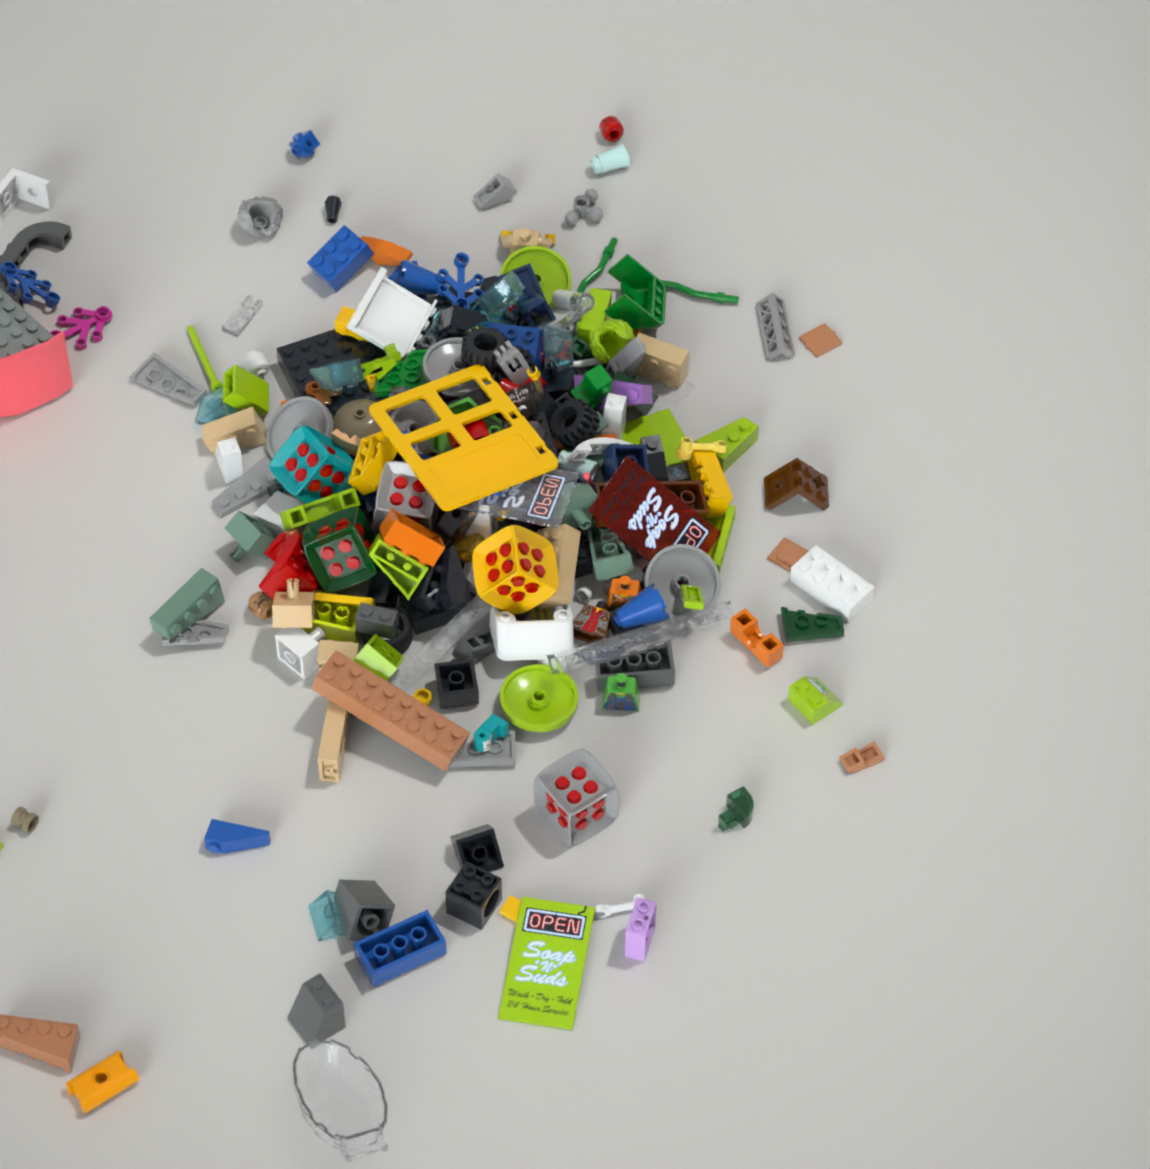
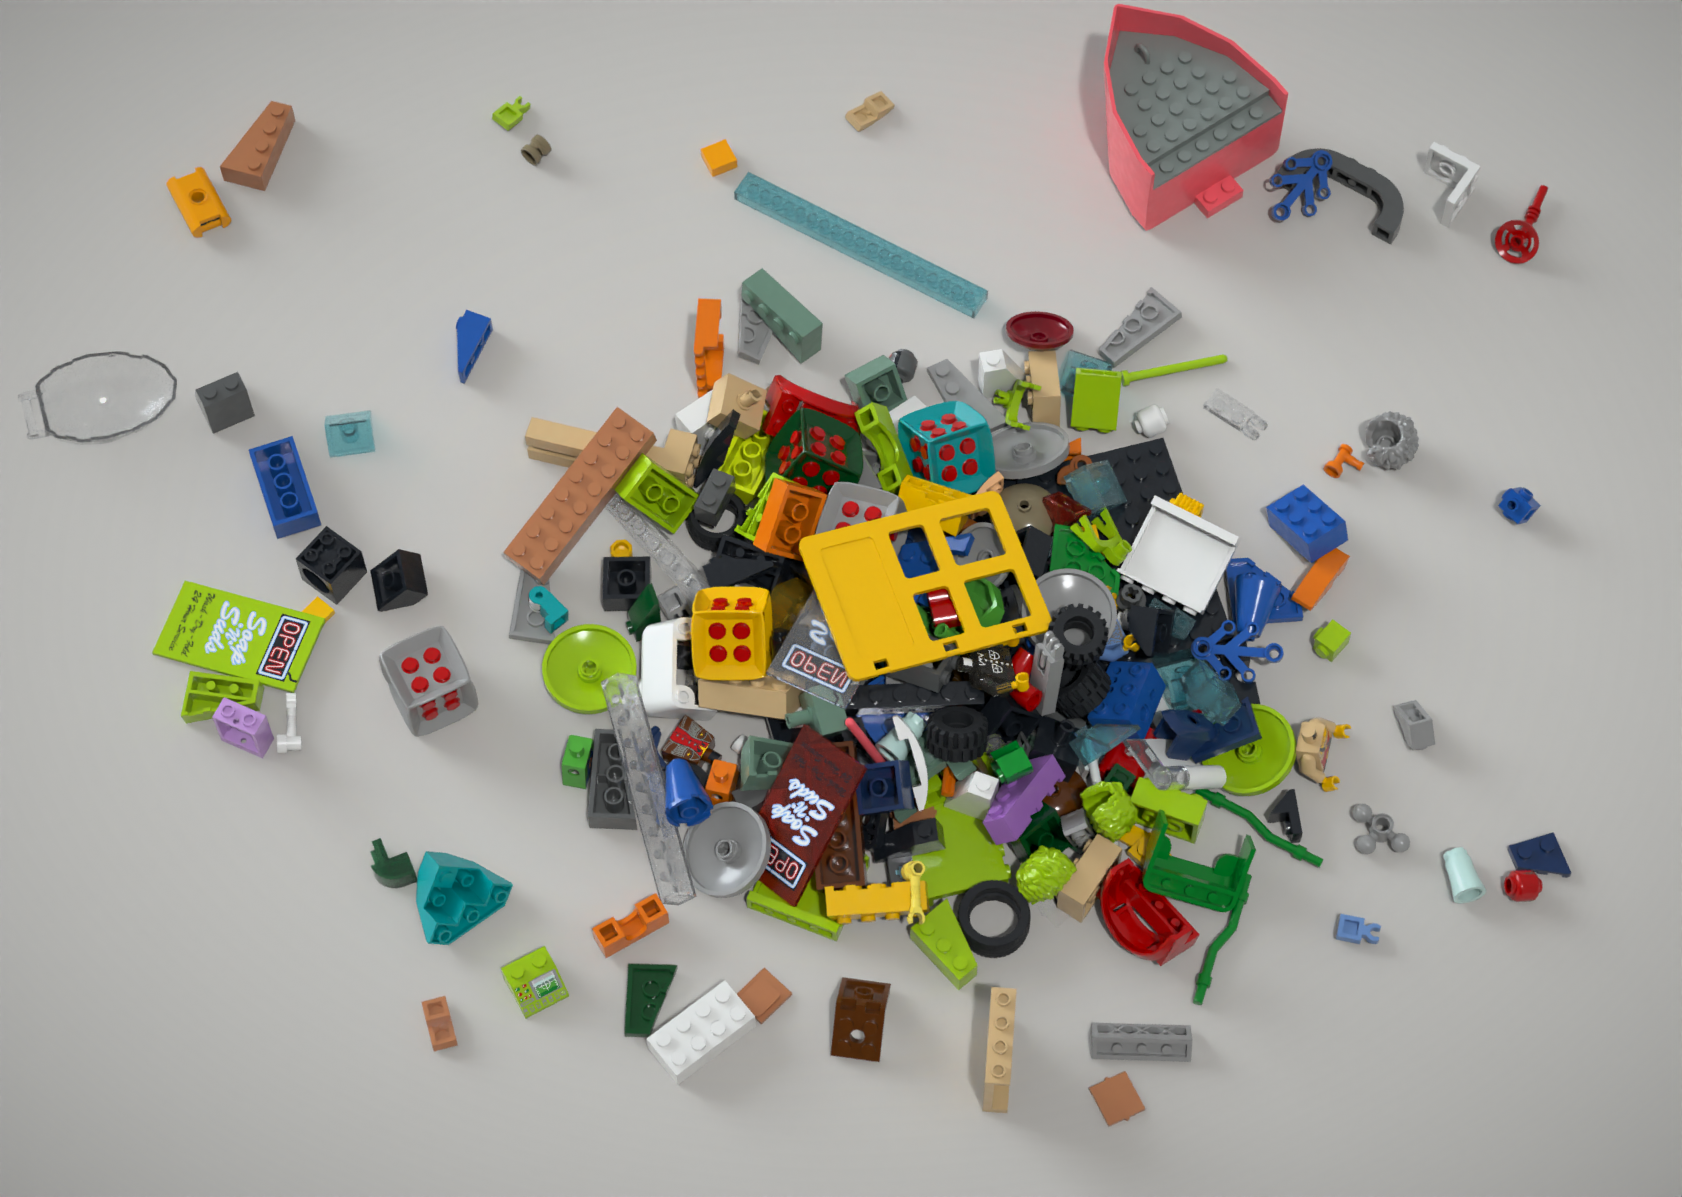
camera: 100 degrees right, 10 degrees up
(22, 684) = (719, 158): none -> light orange piece
(65, 156) = (1521, 235): none -> red dish
(100, 316) = (1239, 245): dark pink plant -> none
(102, 575) = (861, 245): none -> clear light blue piece
(182, 437) = (1039, 330): none -> dark red dish
(218, 530) = (905, 363): none -> dark grey head
(234, 663) = (708, 344): none -> orange hinge
(251, 450) = (1011, 401): none -> lime piece
(282, 253) = (1334, 468): none -> orange piece
(329, 616) = (717, 447): none -> black slope
(332, 207) = (1407, 531): black cone -> none
(343, 599) = (750, 466): yellow tile -> none
(361, 388) = (1064, 509): none -> clear red slope
(362, 908) = (341, 453): dark grey slope -> none
(433, 244) = (1331, 640): none -> lime brick
(486, 659) = (643, 612): none -> dark green slope
(579, 258) = (1287, 812): none -> black slope
(584, 124) = (1540, 855): none -> dark blue wing
(610, 960) = (207, 691): none -> lime wedge
(663, 216) = (1353, 929): none -> medium blue plate
(669, 377) = (1044, 874): none -> lime hair
(692, 310) = (1126, 886): none -> red piece
(692, 597) = (691, 851): lime plate -> none
(705, 400) = (994, 891): none -> black tyre
(755, 761) = (456, 896): none -> teal brick
(813, 389) = (999, 1050): none -> tan panel

